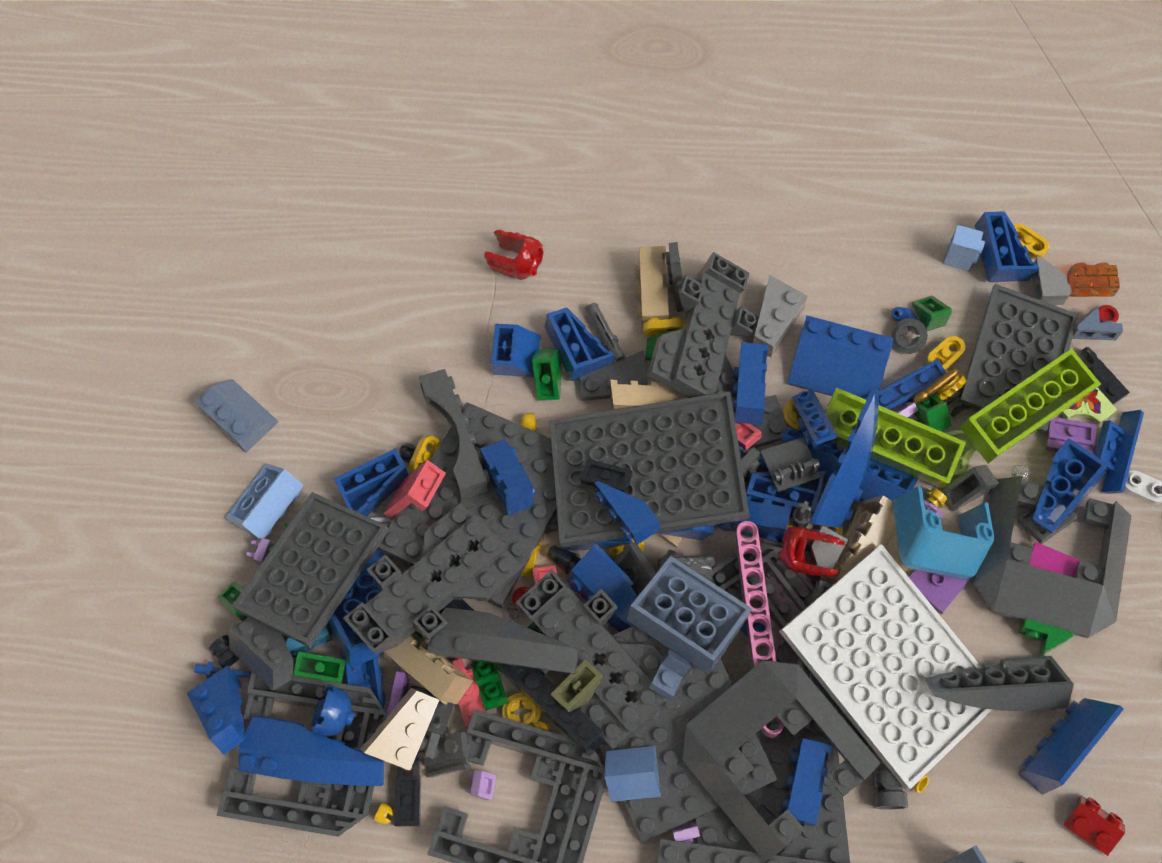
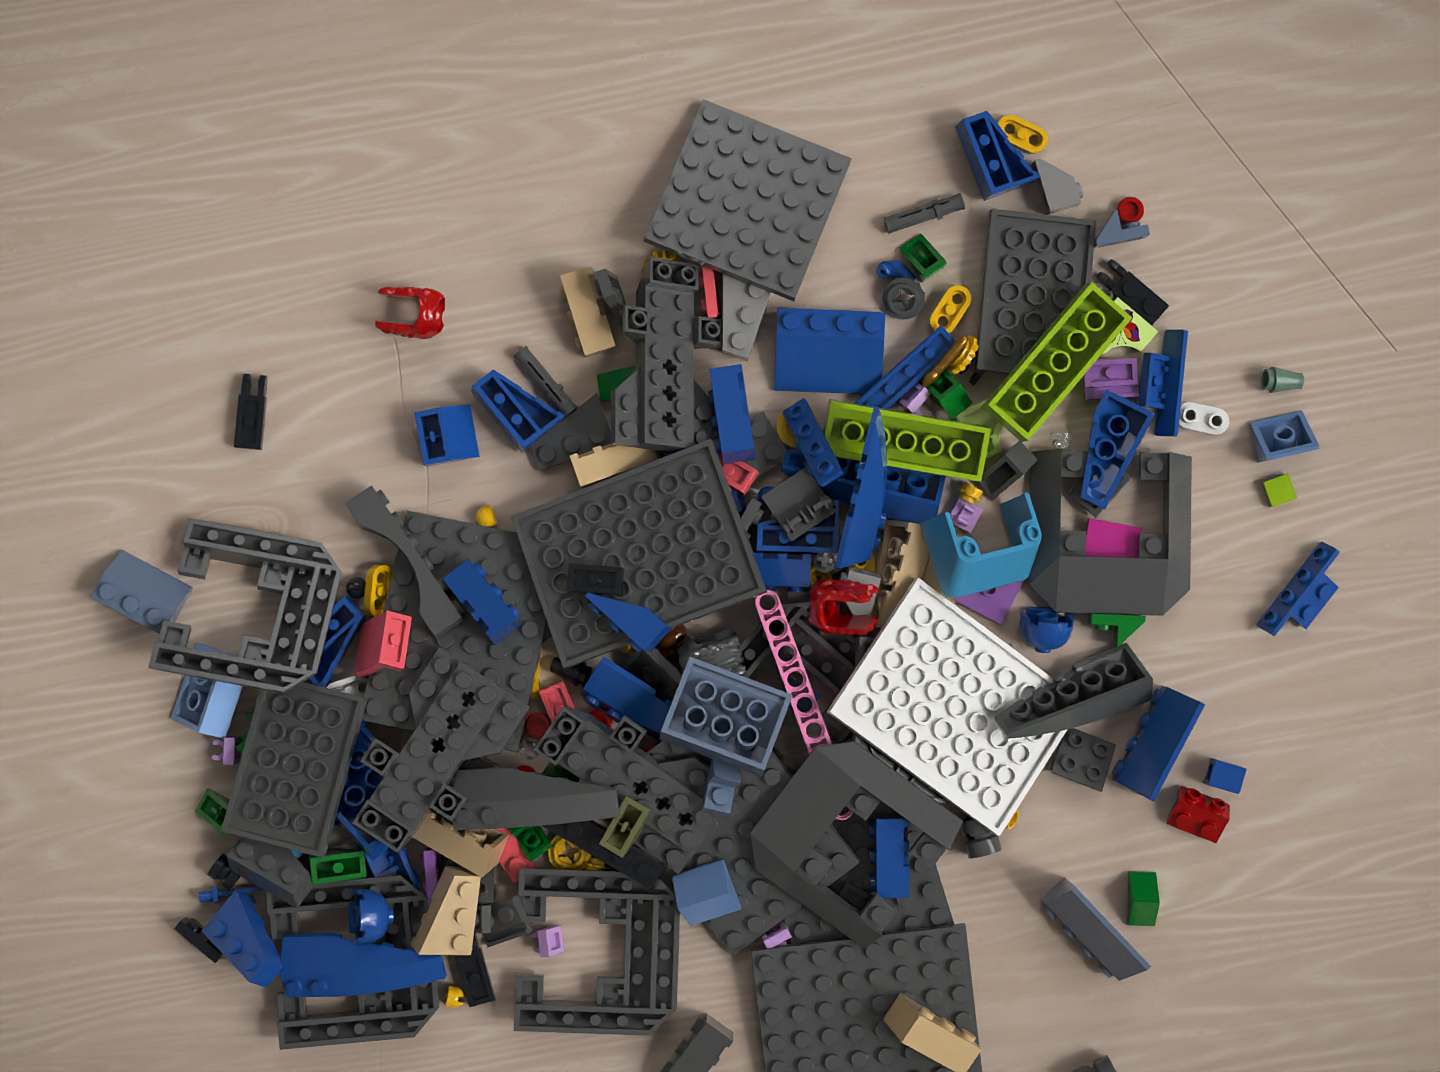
camera: 15 degrees left, 20 degrees up
(179, 696) = (192, 931): none -> black plate
(363, 422) = (289, 567): none -> dark grey slope
(367, 303) = (251, 415): none -> black hinge
(547, 374) = (491, 452): green slope -> none
(655, 548) = (669, 643): none -> reddish brown animal
(656, 326) = (602, 360): yellow plate -> none
(754, 287) = (711, 303): none -> coral hinge
(799, 236) = (747, 200): none -> dark grey plate
(946, 279) = (930, 211): none -> dark grey pin
(964, 248) = (947, 169): light blue brick -> none
(982, 624) = (1045, 628): none -> blue cylinder
(996, 747) = (1083, 759): none -> dark grey hinge
(1093, 280) = (1106, 169): clear orange brick -> none
(1125, 792) = (1225, 776): none -> blue panel

